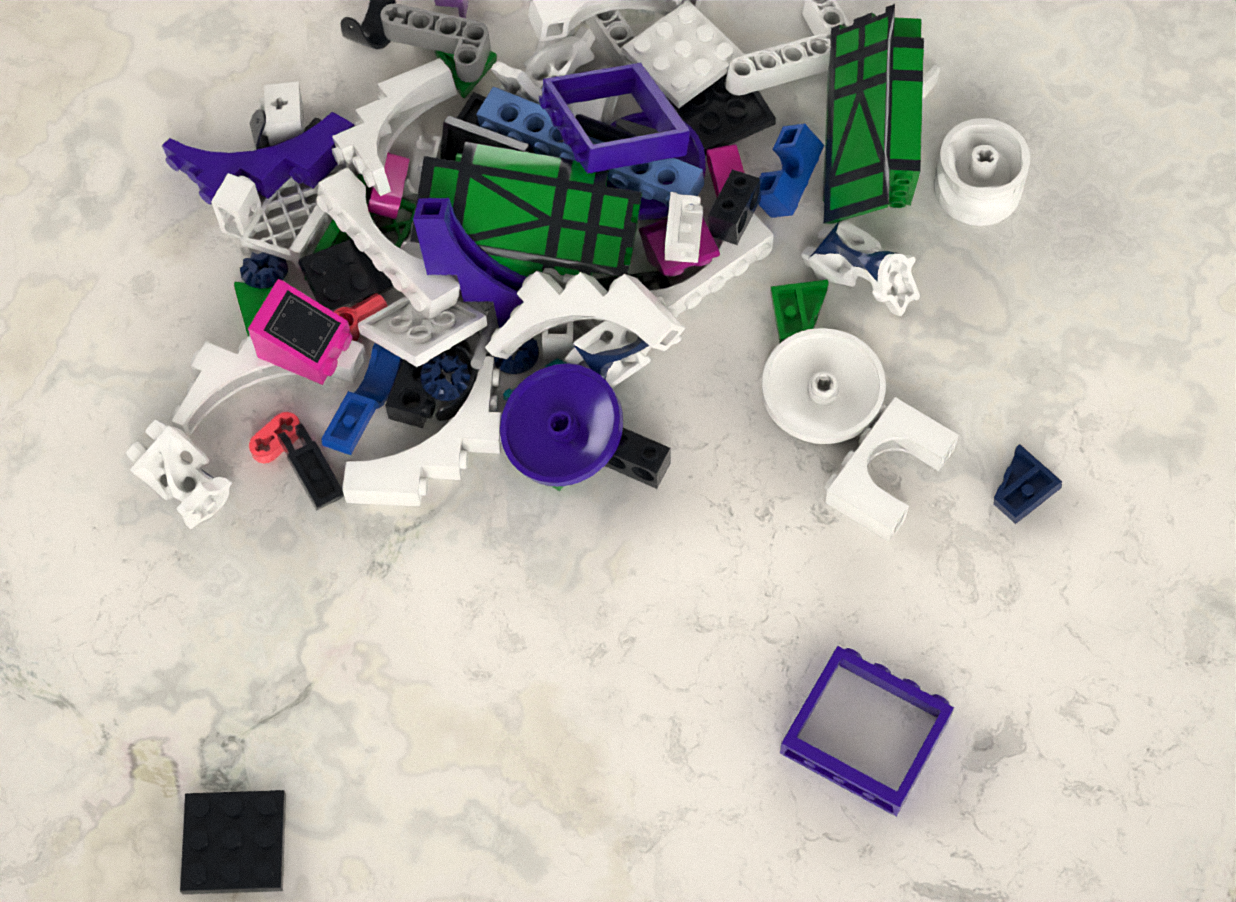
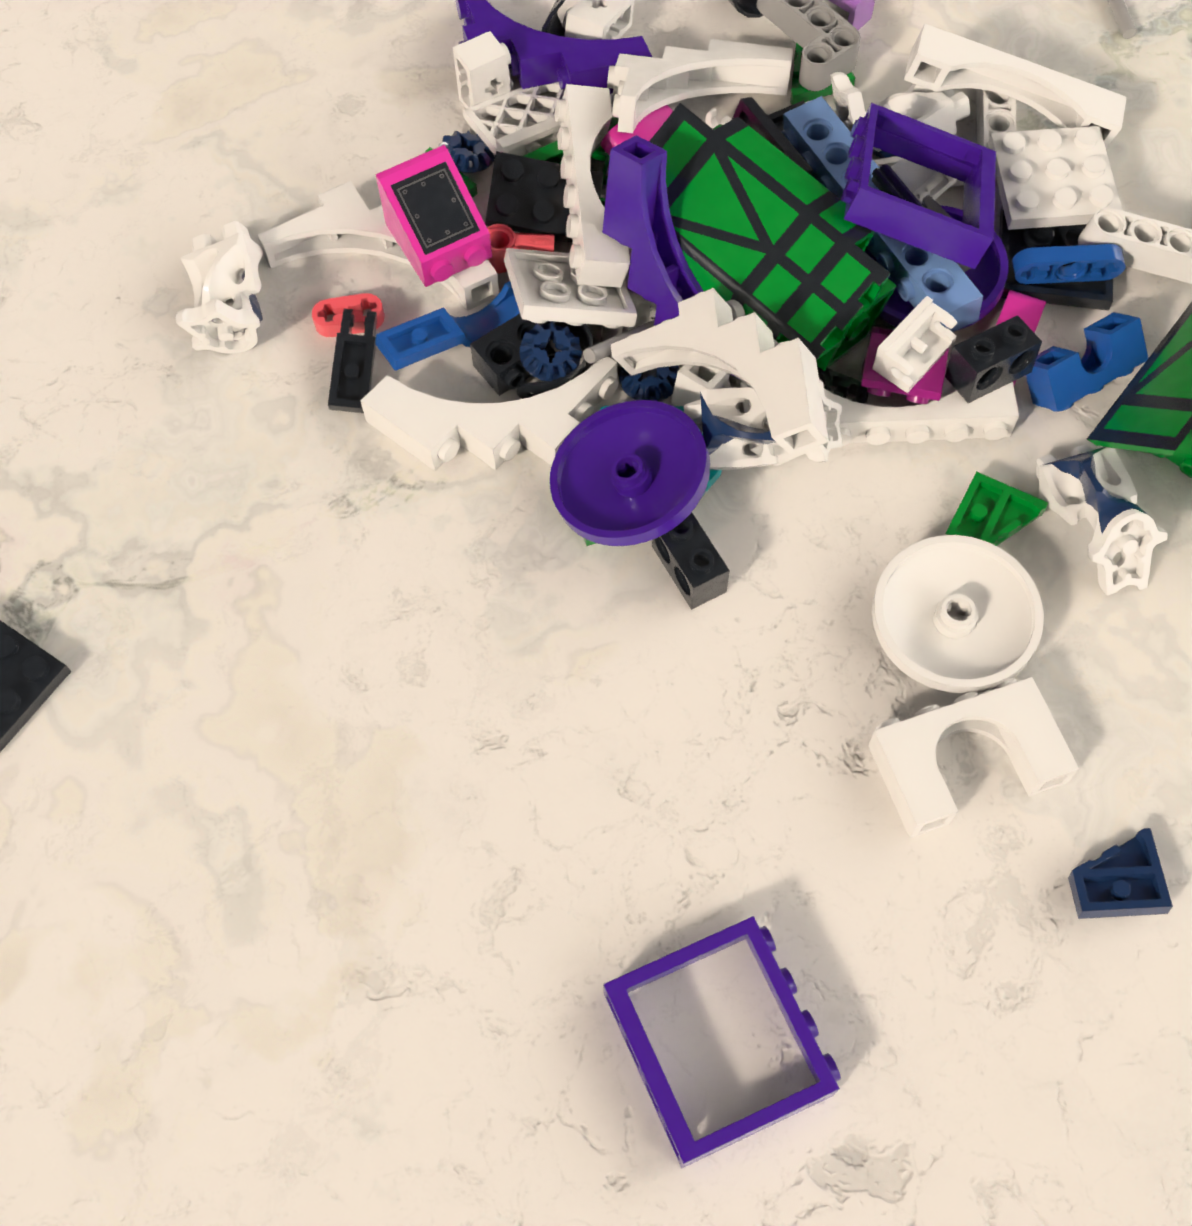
camera: 35 degrees right, 0 degrees up
(733, 110) = (1046, 264): none -> blue beam

